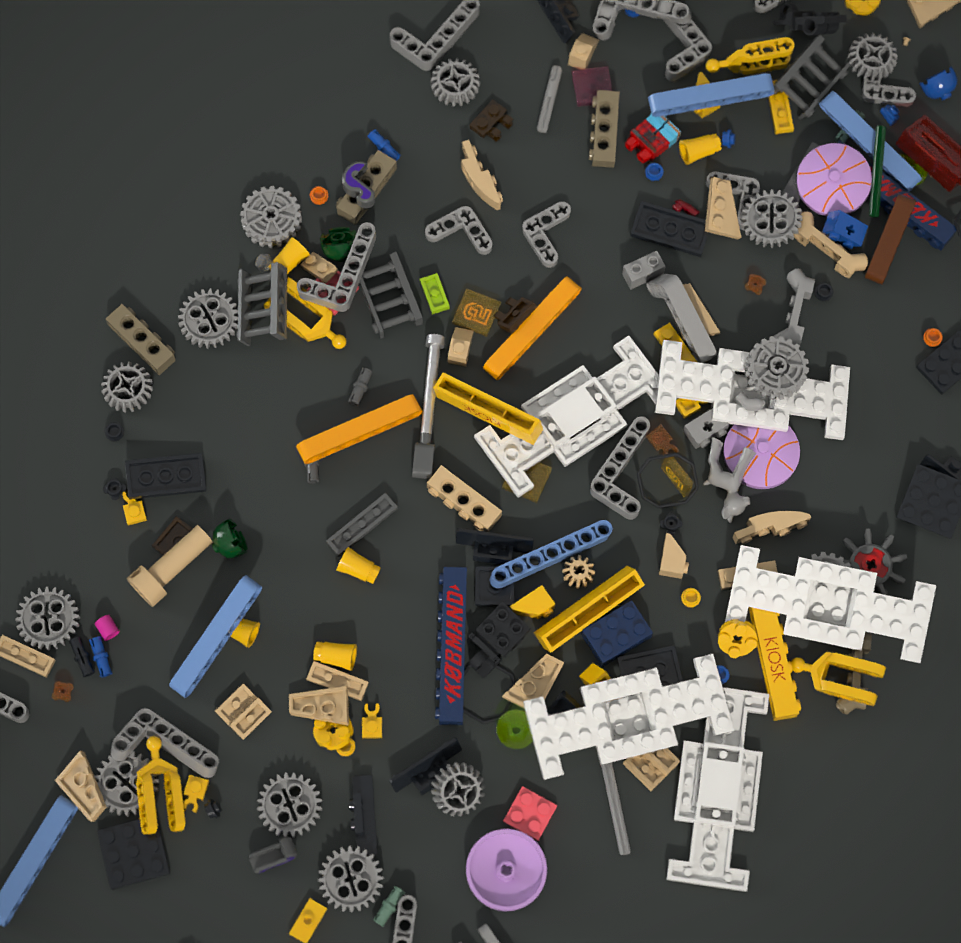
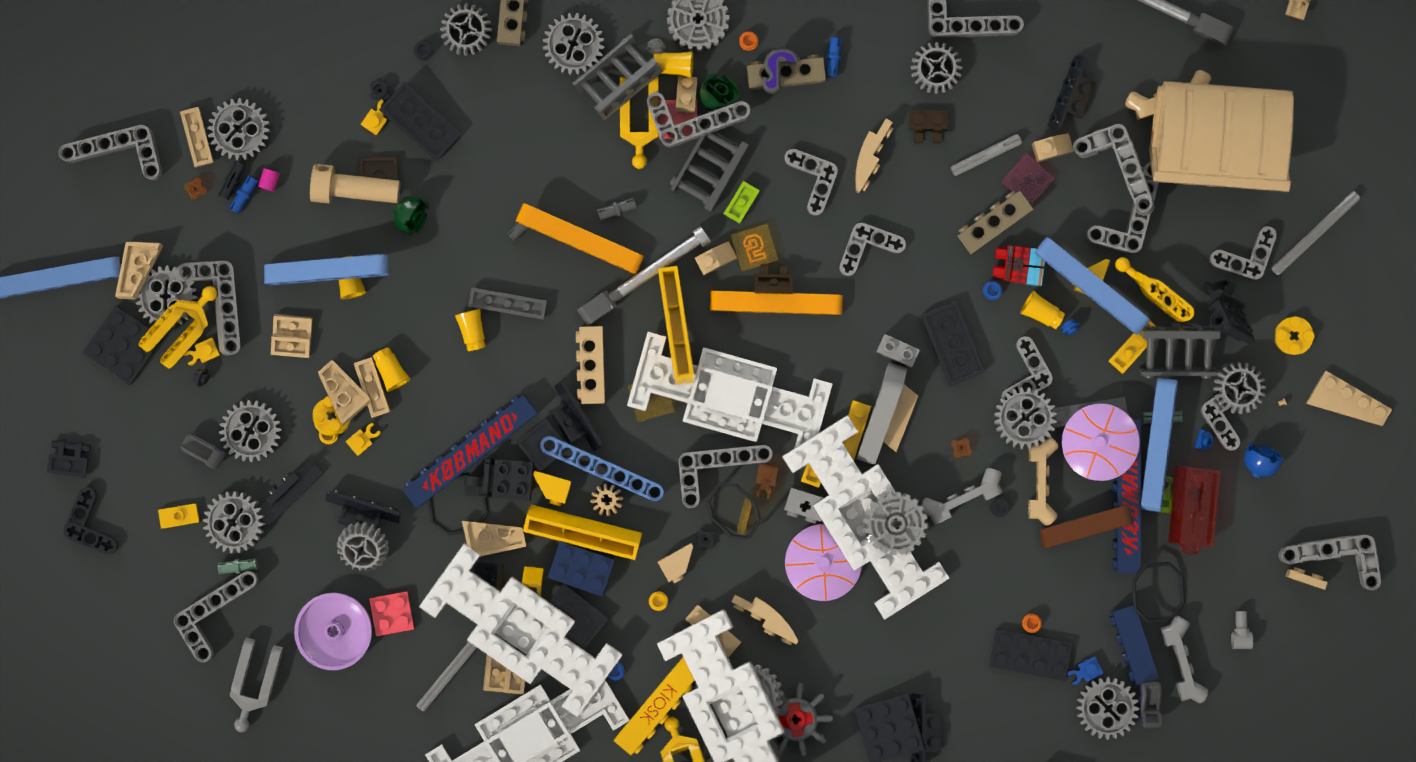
camera: 55 degrees right, 15 degrees up
(505, 725) = (435, 550): clear neon green dish -> none
(686, 207) = (982, 341): dark red arm -> none
(721, 210) = (1001, 371): tan wing -> none
(734, 503) = (774, 558): light grey animal -> none
(741, 647) = (644, 665): yellow plate -> none
(752, 404) = (847, 527): light grey arm -> none
(845, 229) = (1064, 483): blue brick -> none
(877, 171) = (1134, 472): dark green axle -> none

